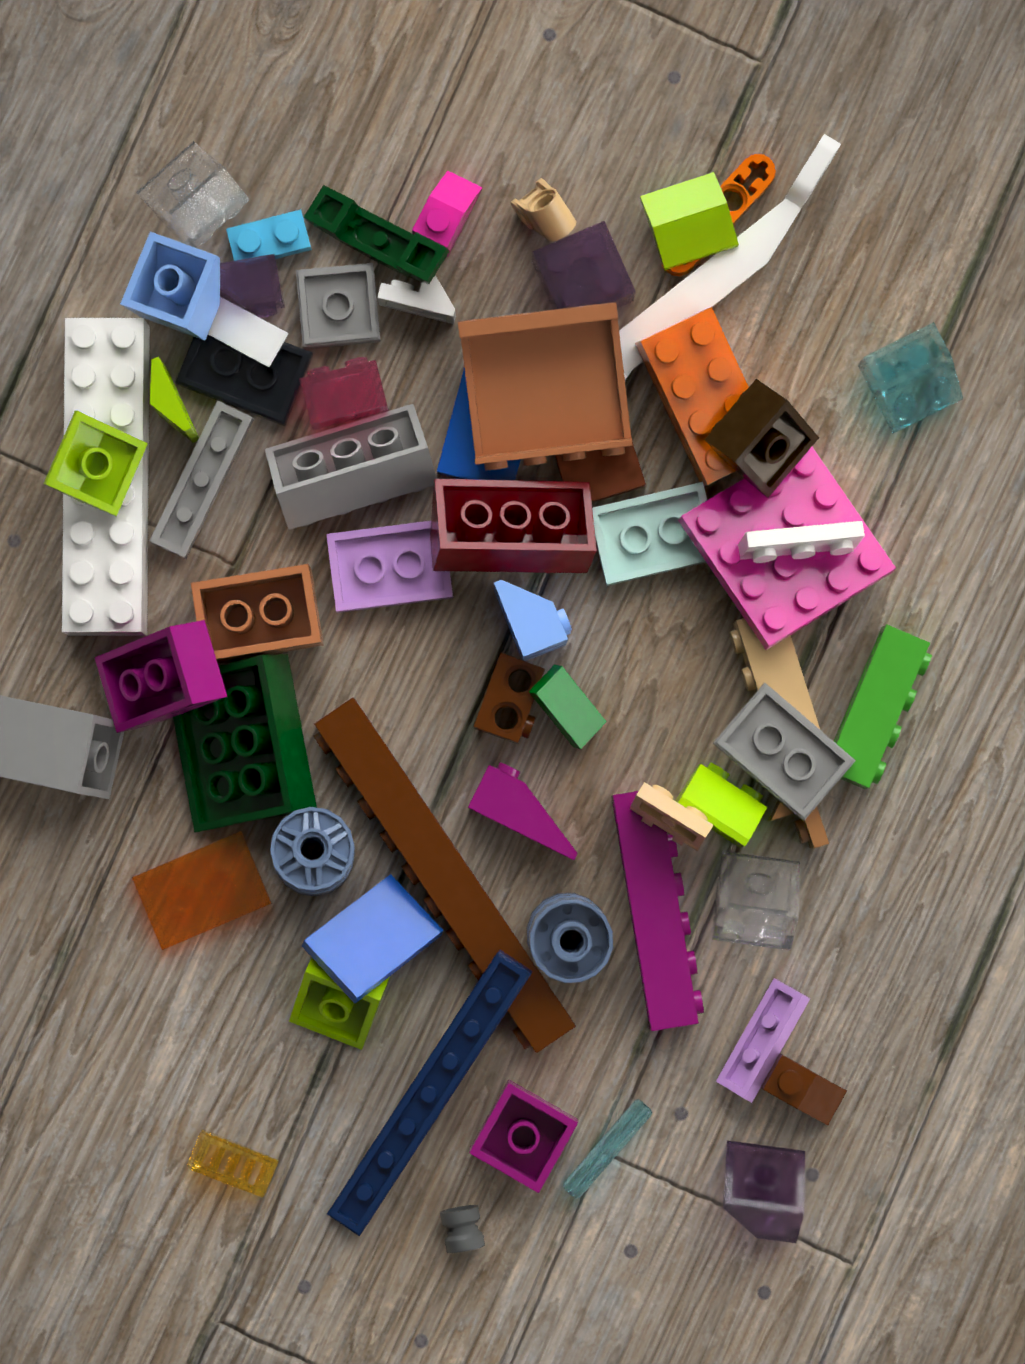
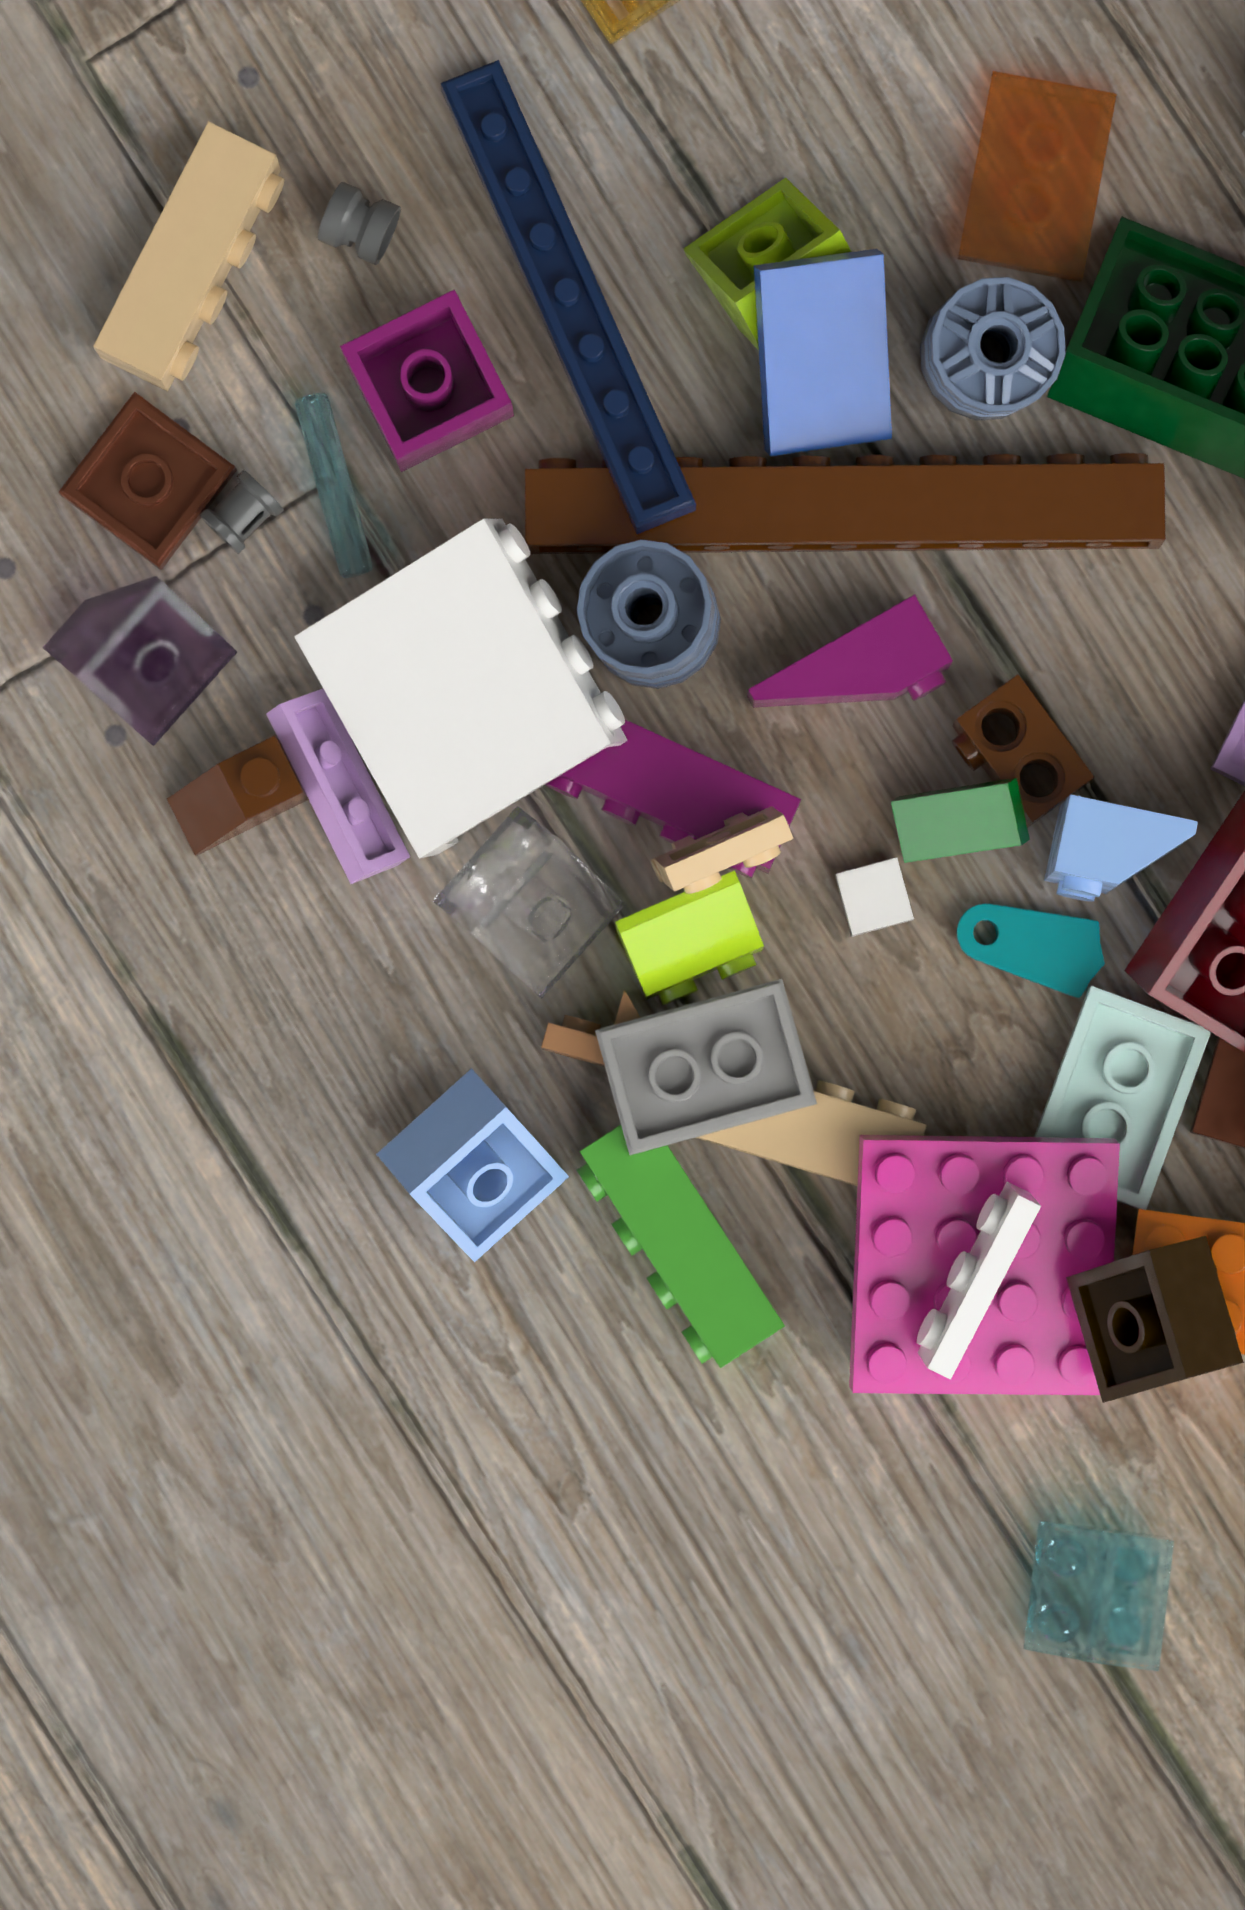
camera: 135 degrees right, 0 degrees up
(539, 1306) = (189, 257): none -> tan brick
(603, 626) = (1036, 946): none -> teal piece
(633, 725) = (874, 897): none -> white tile
(654, 1187) = (241, 512): none -> dark grey bush
(669, 1248) = (147, 480): none -> copper tile
(671, 1009) = (461, 684): none -> white panel
(910, 839) = (472, 1165): none -> light blue slope

